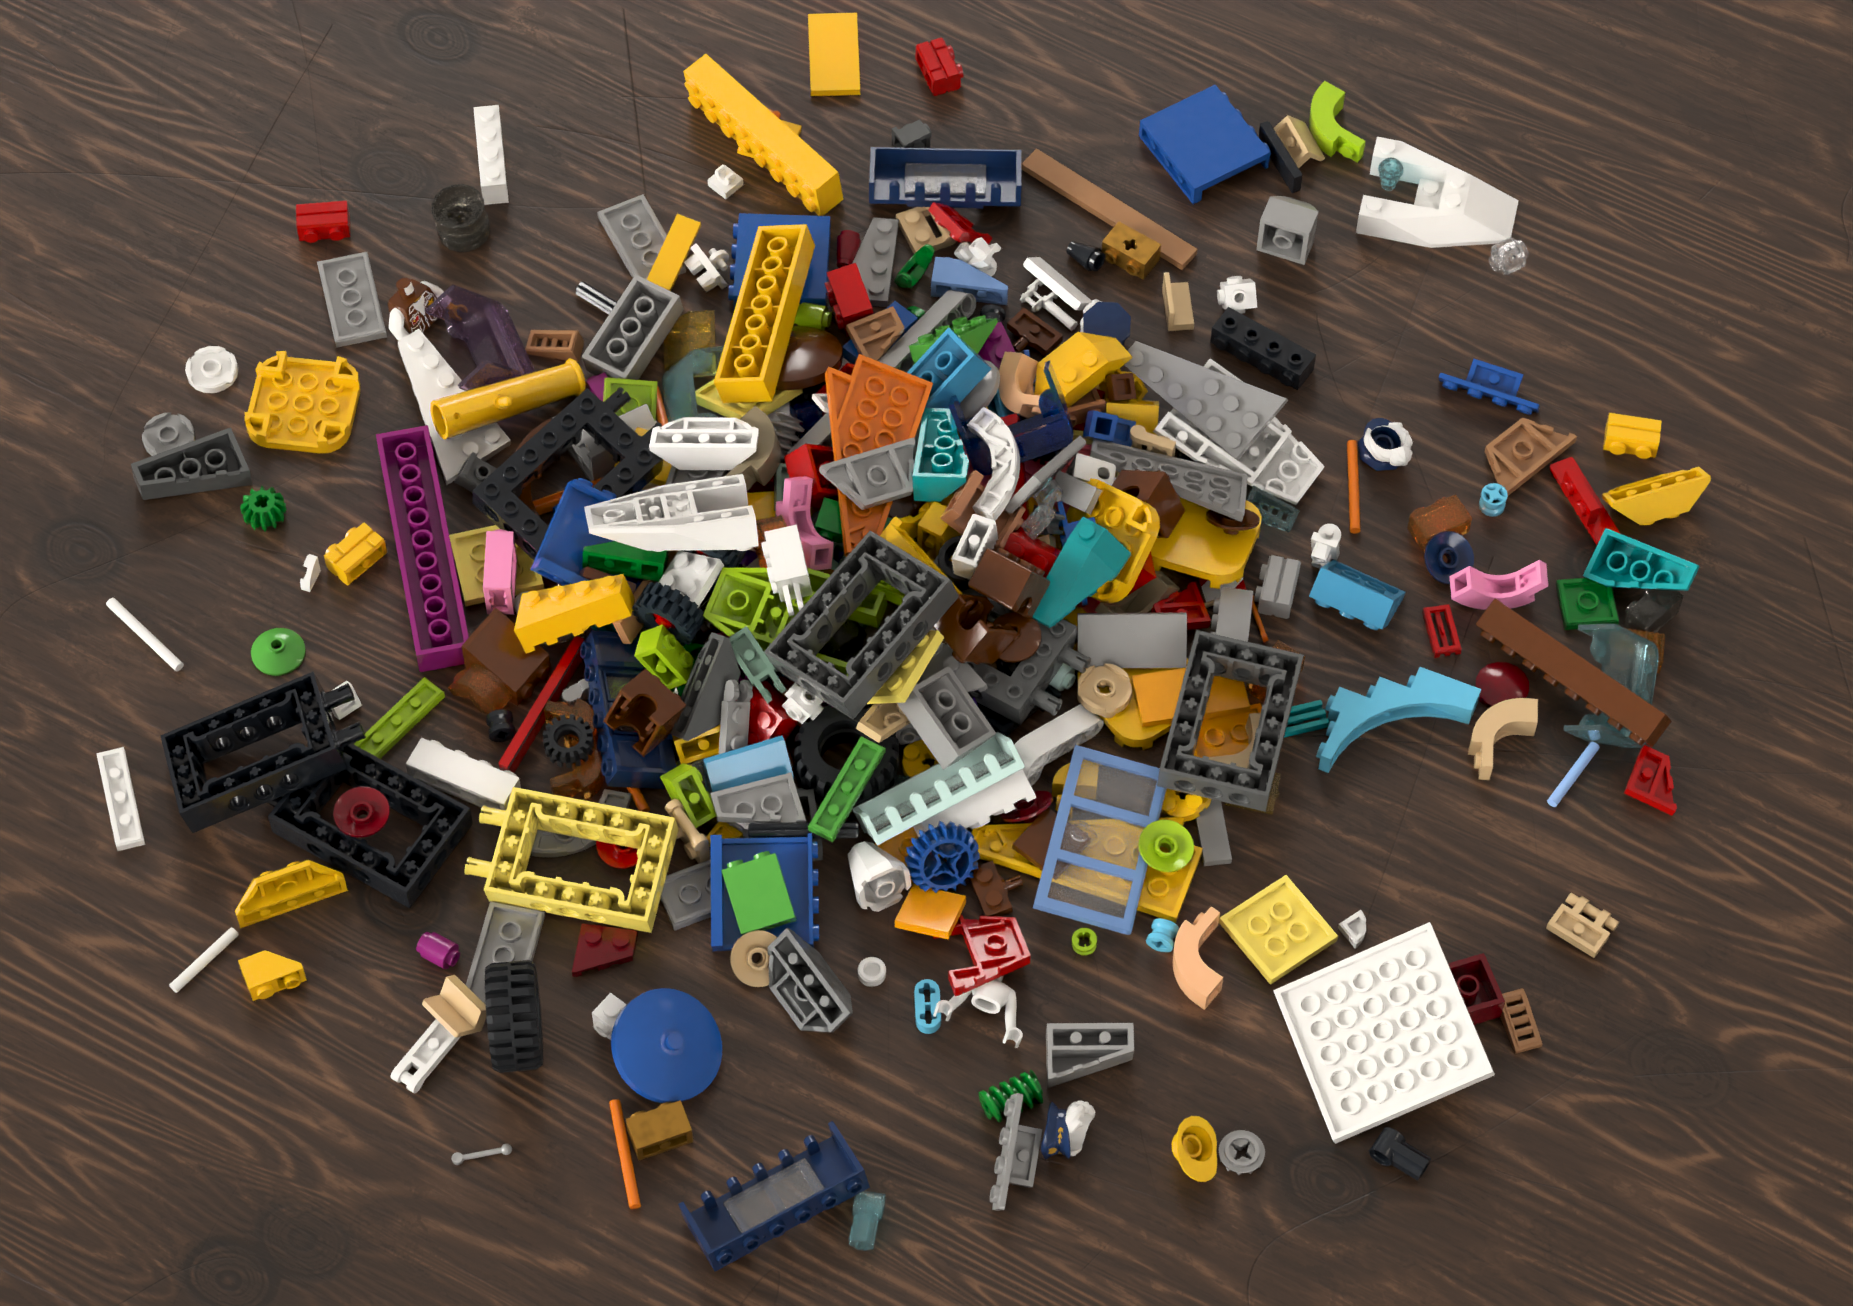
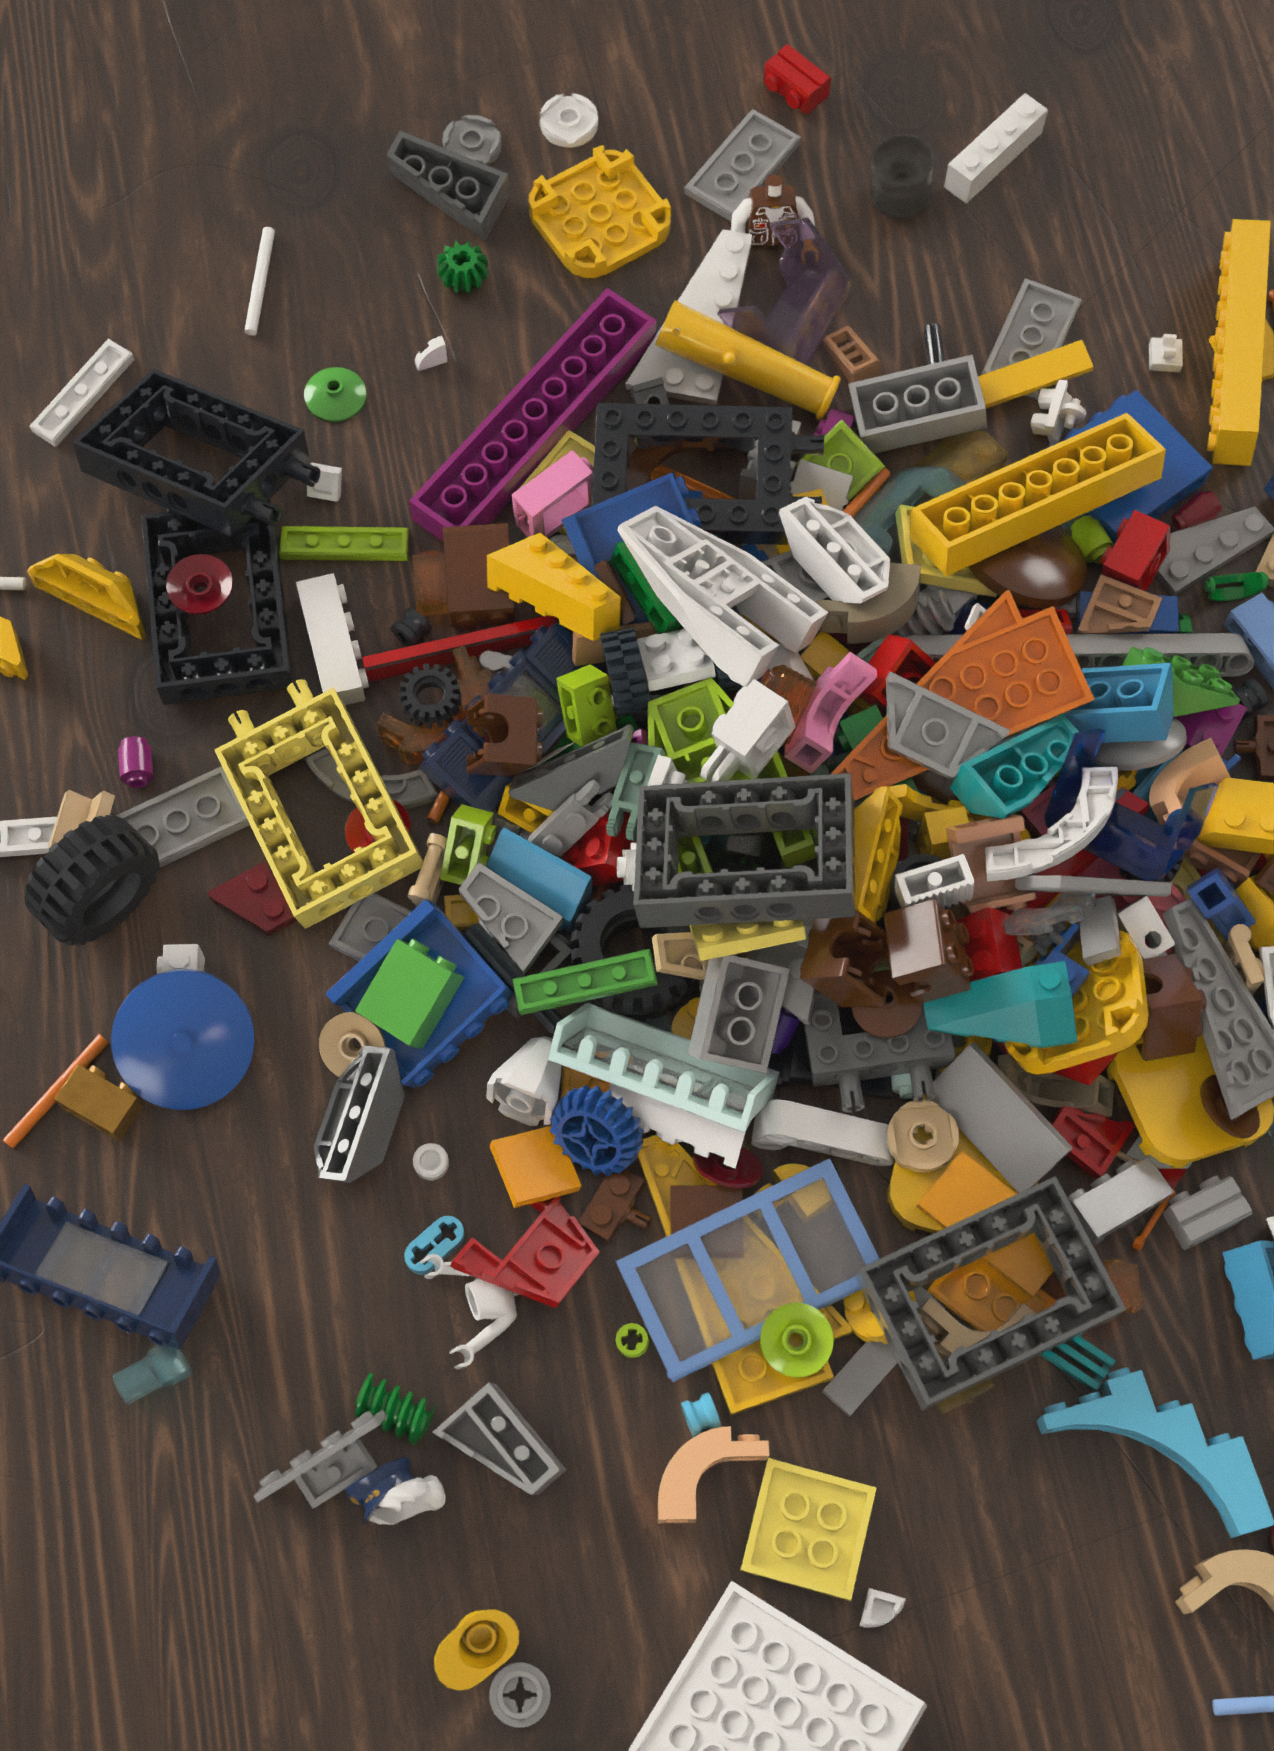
camera: 50 degrees right, 10 degrees up
(355, 553) = (482, 372): yellow brick -> none
(765, 637) = (666, 773): none -> white tile

